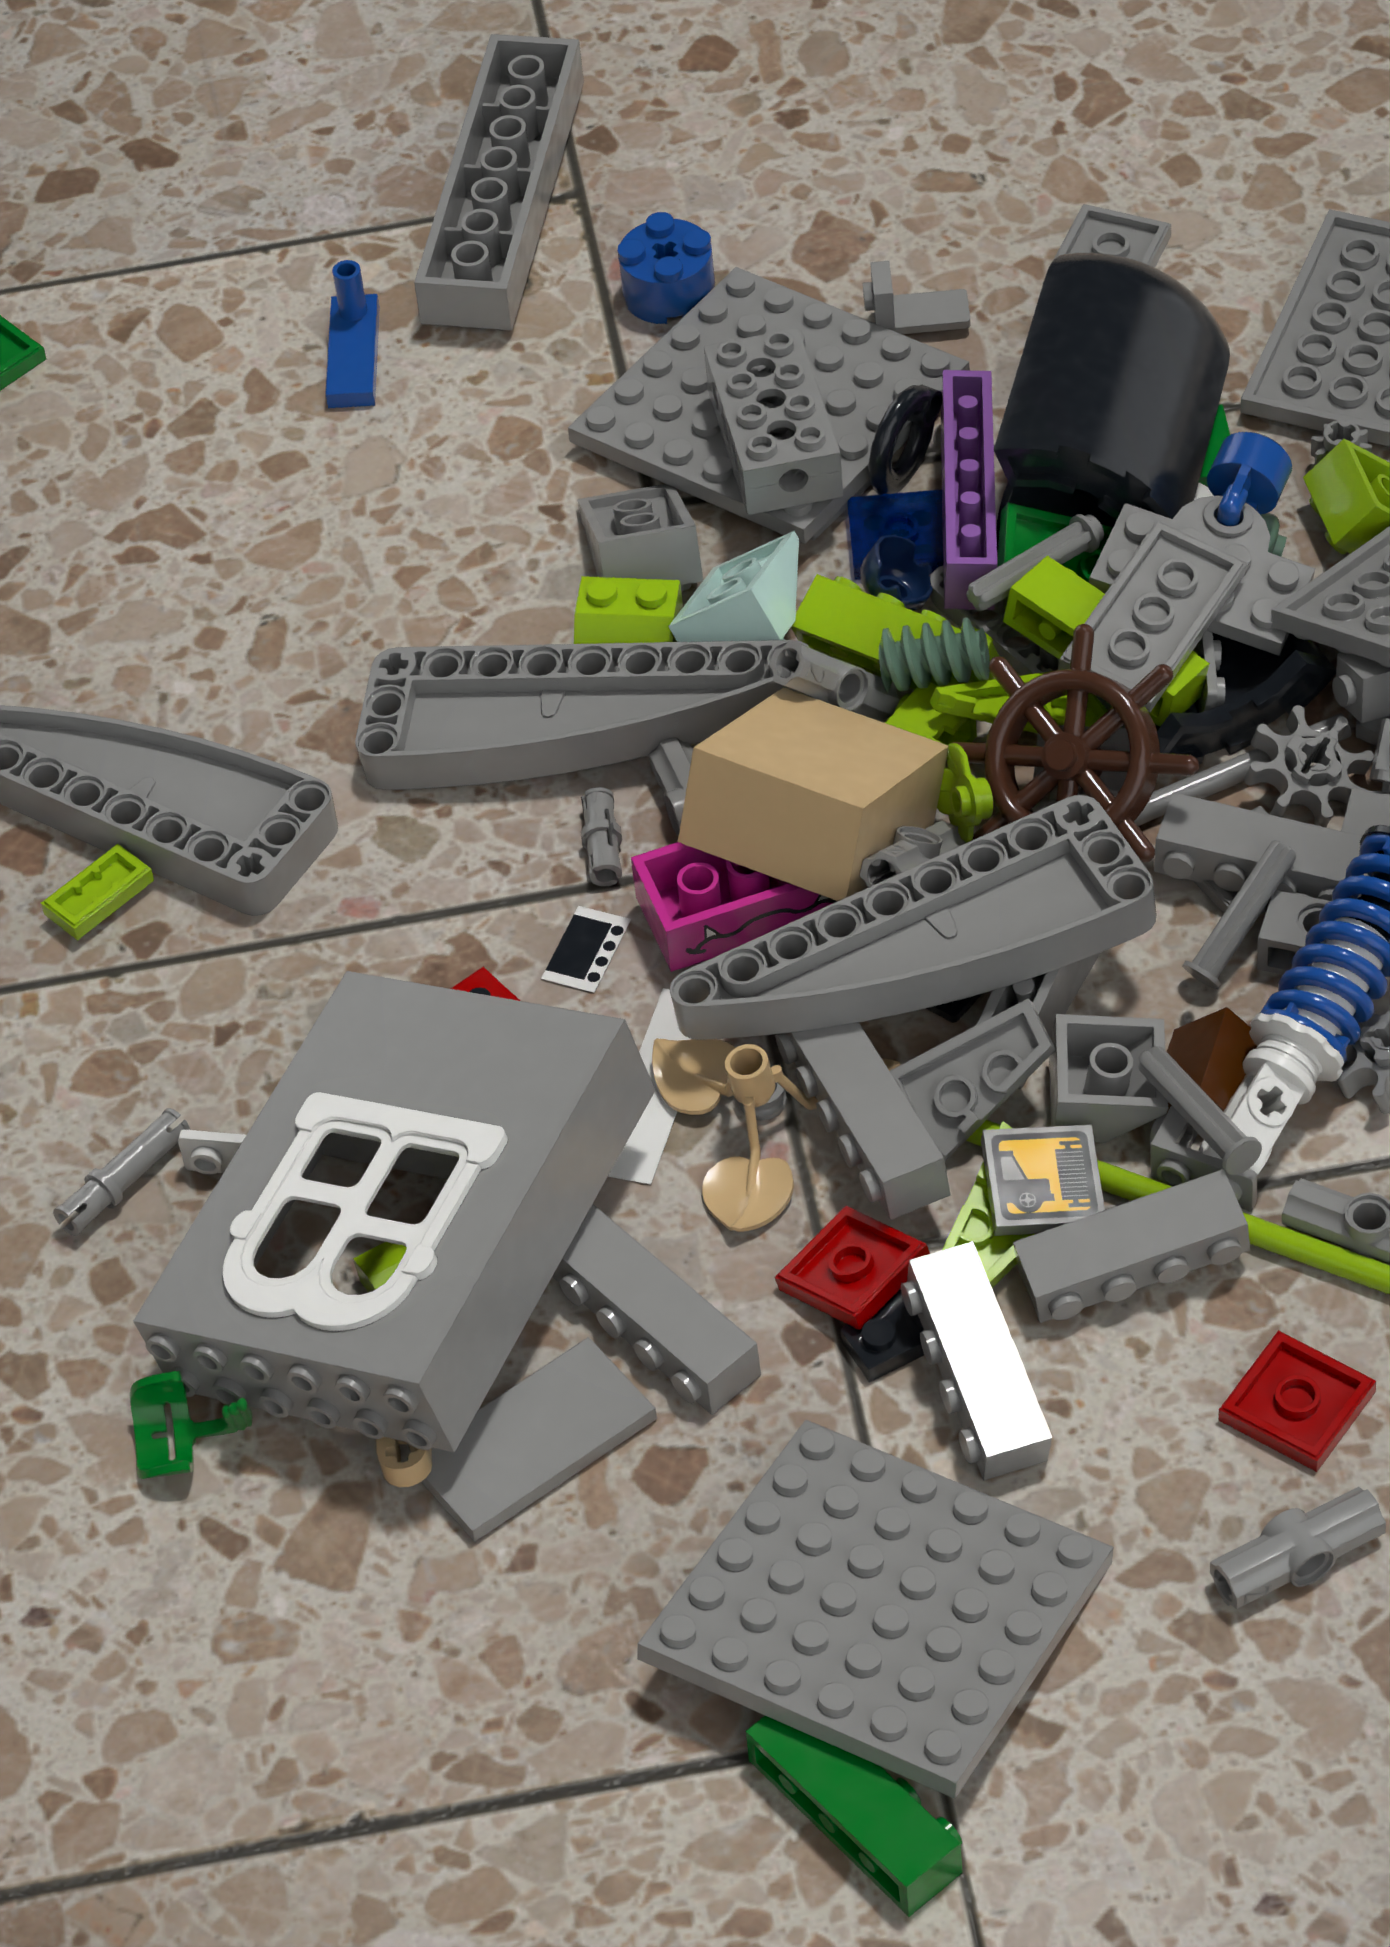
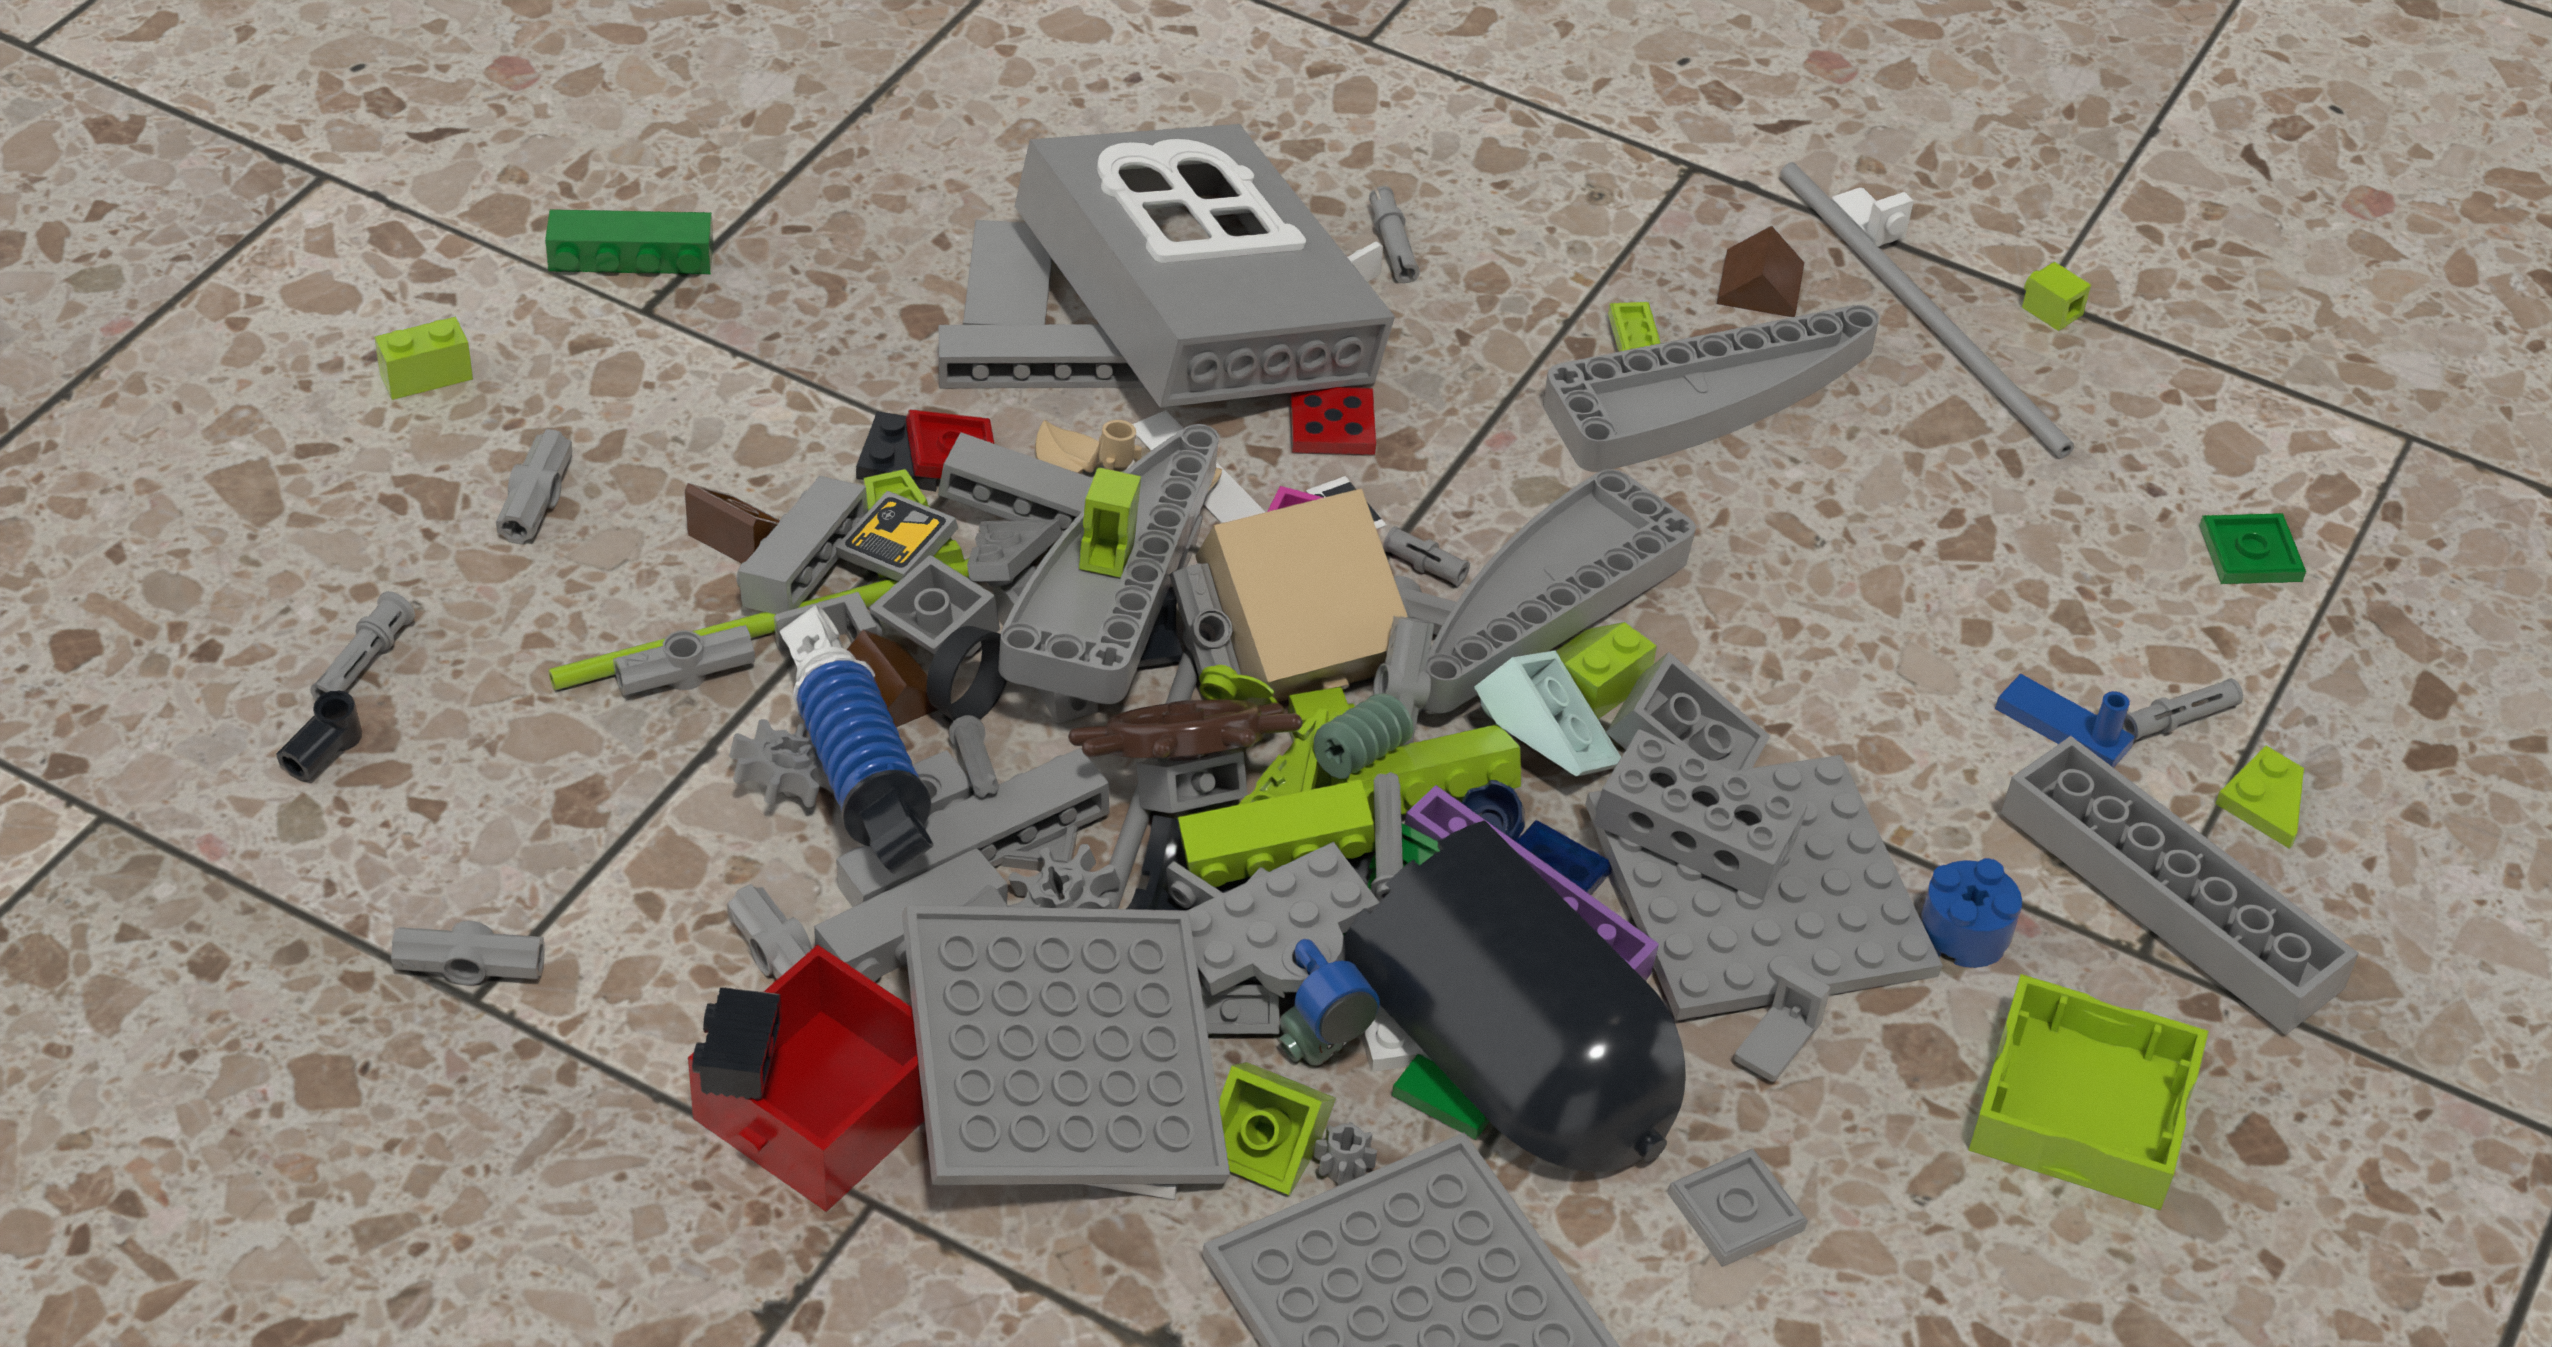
camera: 120 degrees right, 5 degrees down
(279, 292) = (2219, 696): none -> light grey pin
(310, 206) = (2267, 795): none -> lime wing
(781, 128) = (2090, 1092): none -> lime tile
(877, 1607) = (721, 309): light grey plate -> none
(919, 406) = (1612, 858): black piece -> none
(924, 904) = (1109, 522): none -> lime brick
(977, 1361) = (814, 433): brick -> none
(1148, 1341) = (726, 522): none -> reddish brown slope
(1156, 961) = (987, 684): none -> black tyre
(1159, 606) = (1252, 839): light grey tile -> none
(1200, 1111) = (841, 598): light grey axle -> none
(1245, 1807) = (423, 358): none -> lime brick
(1297, 1401) = (625, 564): red tile -> none

